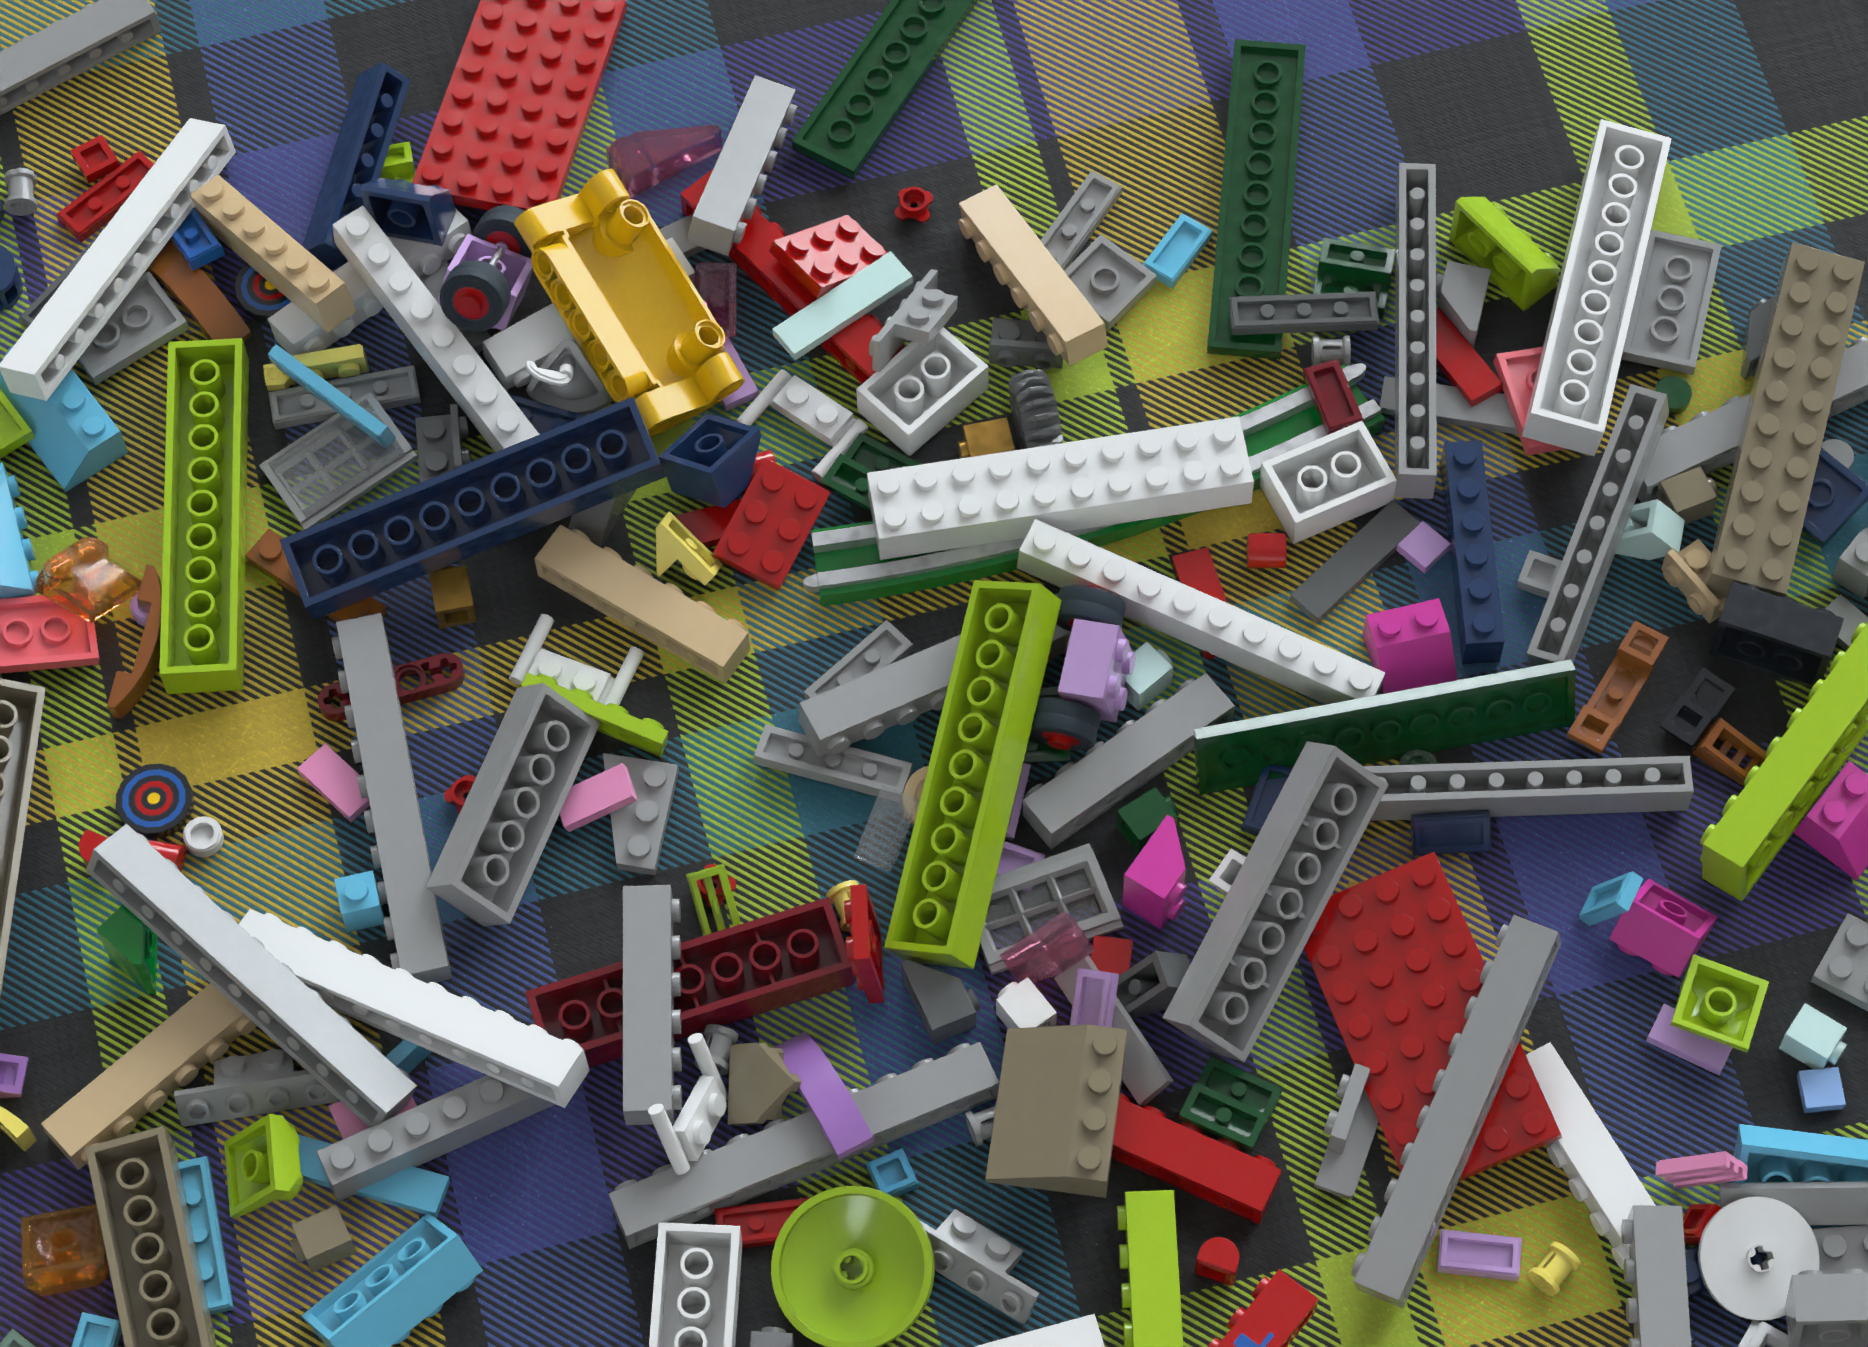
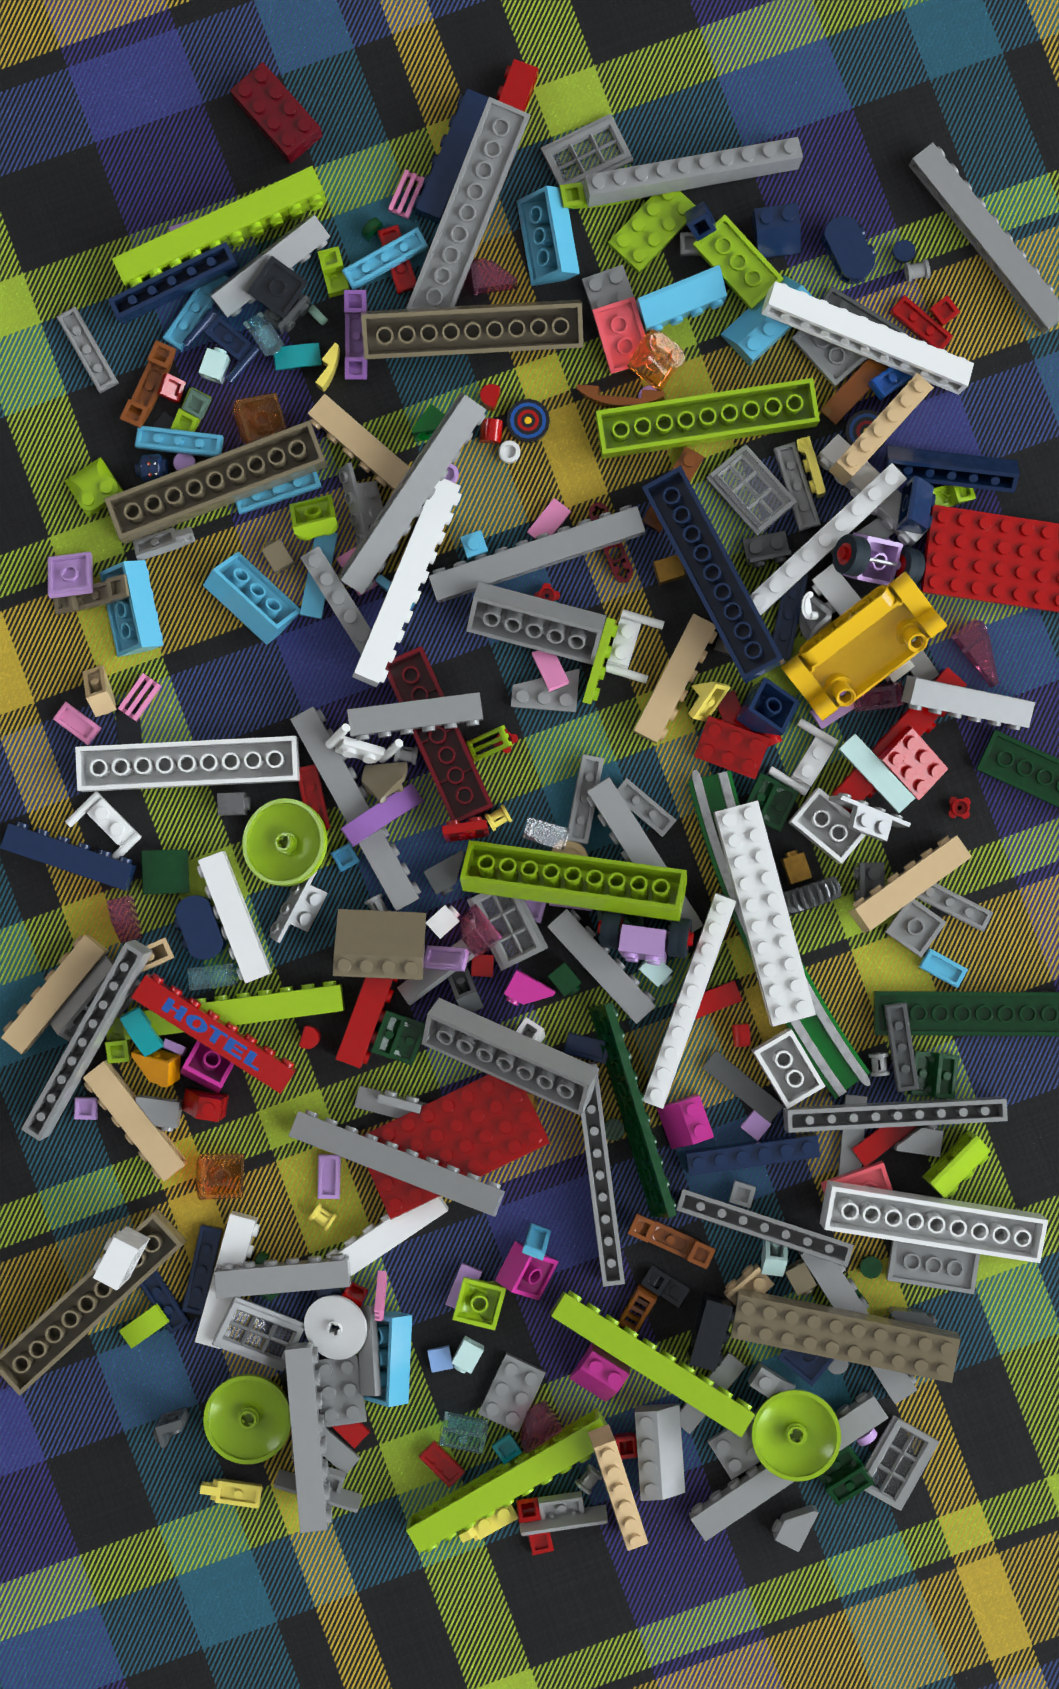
camera: 80 degrees right, 25 degrees up
(331, 396) = (785, 479): medium azure tile -> none
(1332, 396) = (843, 1068): dark red tile -> none
(1450, 832) = (573, 1149): dark blue tile -> none

